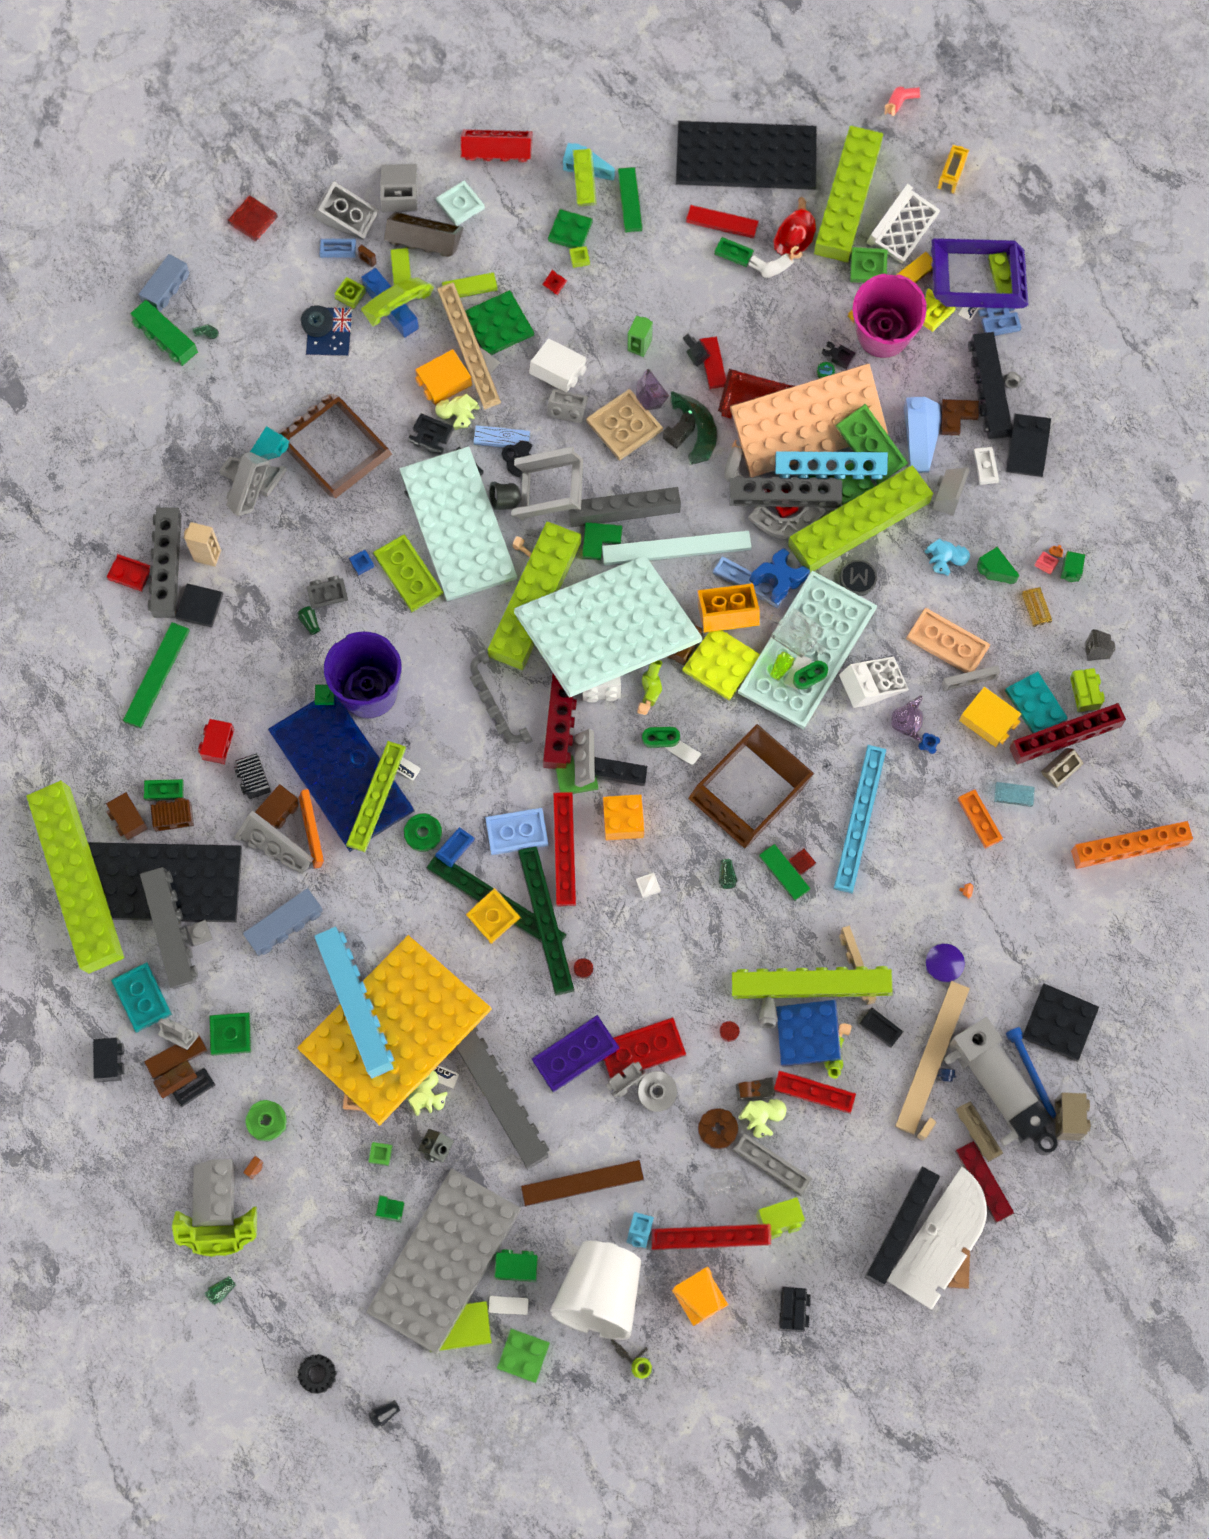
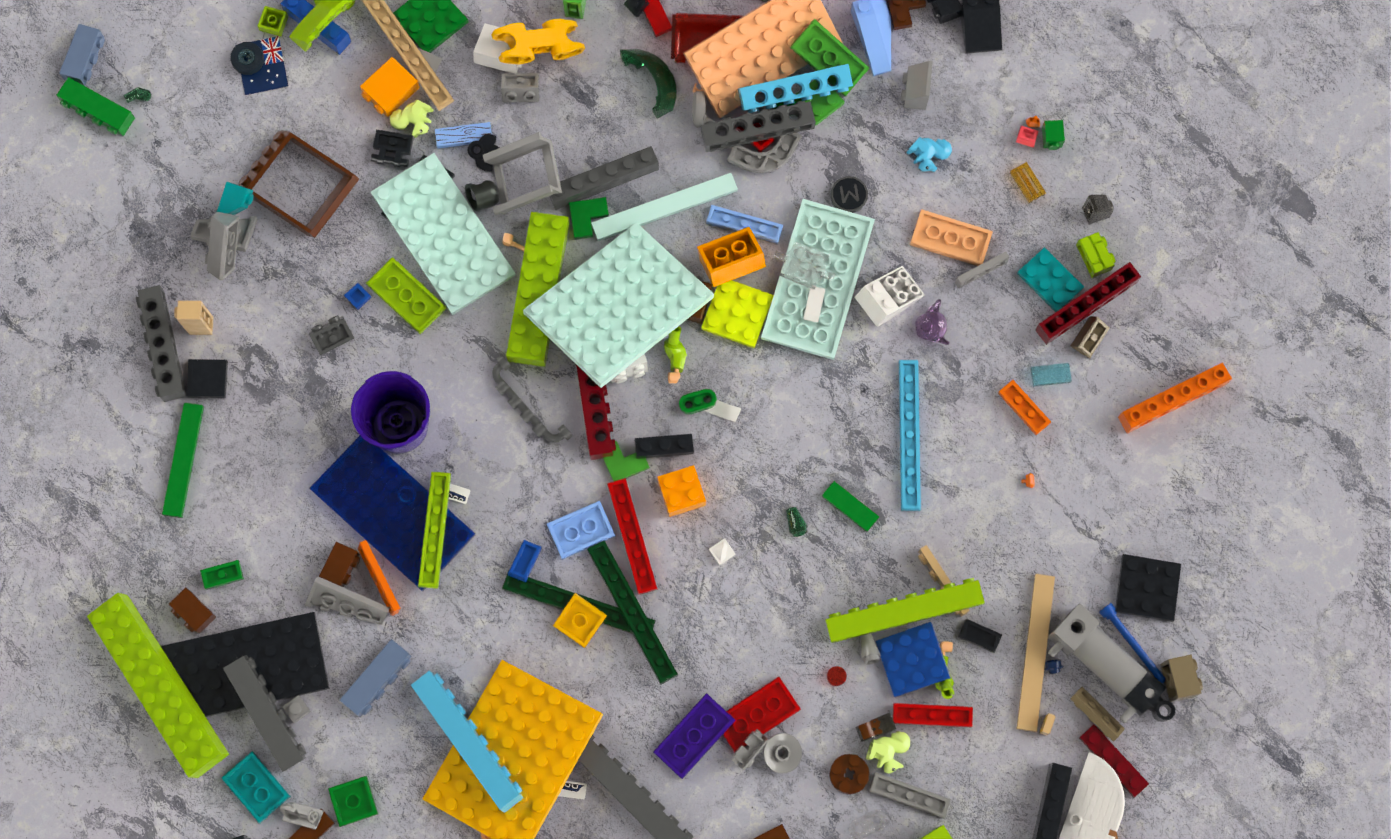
camera: 15 degrees left, 5 degrees up
(129, 572) = (127, 362): red plate -> none
(172, 814) = (237, 598): reddish brown brick -> none
(216, 741) = (261, 513): red brick -> none
(252, 776) = (307, 539): black brick -> none
(309, 620) = (320, 367): dark green cone -> none
(323, 695) = (355, 441): green plate -> none
(424, 1097) = (560, 816): yellowish green animal -> none
(427, 842) = (489, 542): green tile -> none
(583, 365) = (526, 43): none -> yellow piece
(583, 968) = (680, 649): clear red tile -> none
(584, 758) = (628, 441): light grey plate -> none
(624, 424) = (581, 93): tan plate -> none
(650, 391) = (599, 54): clear purple slope -> none
(681, 431) = (639, 87): clear smoke leg -> none
(774, 756) = (818, 397): reddish brown window -> none
(779, 575) = (772, 211): blue piece -> none
(782, 664) = (797, 302): clear neon green cone -> none
(802, 862) = (864, 491): clear red tile -> none
(809, 675) = (827, 306): green plate -> none
(860, 519) = (836, 136): lime brick -> none
(929, 738) = (962, 340): blue plate -> none
(945, 962) = (1025, 557): dark purple dish -> none
(986, 465) = (945, 52): white plate -> none
(990, 717) = (1011, 304): yellow brick -> none
(997, 567) = (980, 152): green slope -> none

